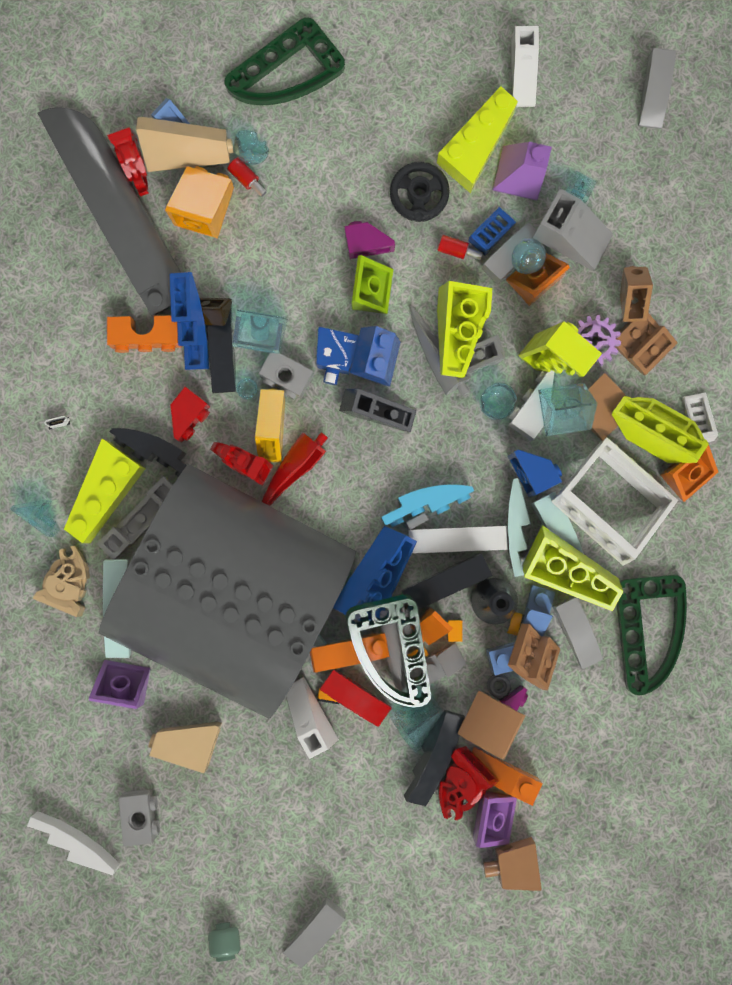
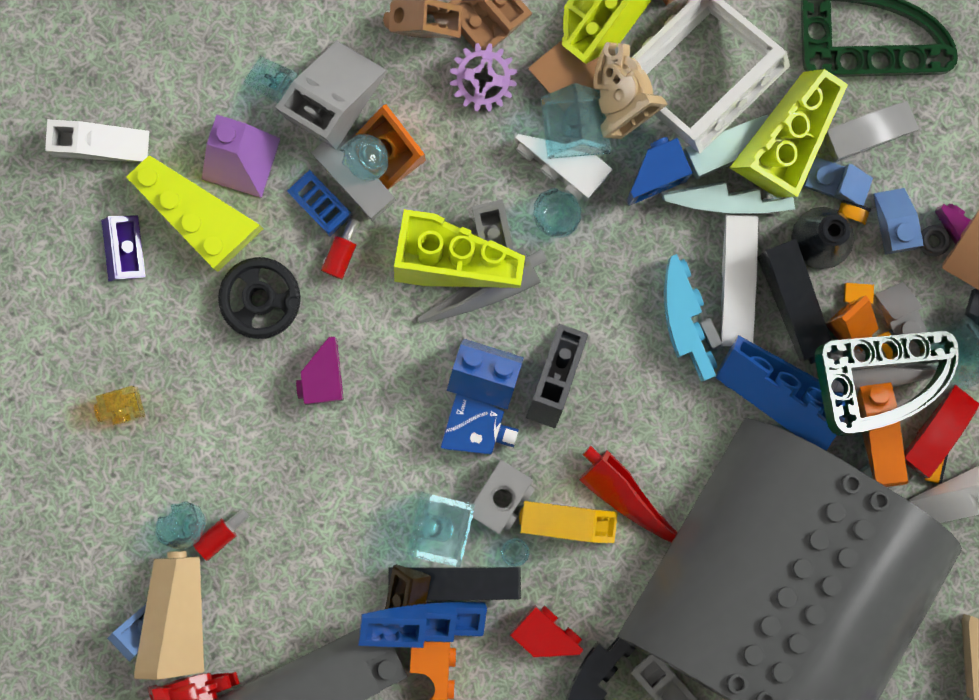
camera: 90 degrees left, 0 degrees up
(200, 201) = (250, 599): light orange slope -> none
(244, 462) = (617, 564): red piece -> none
(276, 46) = (47, 473): dark green beam -> none
(334, 99) = (119, 405): none -> clear yellow brick
(371, 286) = (386, 371): lime slope -> none
(449, 95) = (123, 247): none -> dark purple slope
(534, 657) = (901, 191): medium nougat slope -> none
(560, 350) = (505, 127): neon yellow wedge -> none
(593, 441) = (624, 92): none -> tan piece

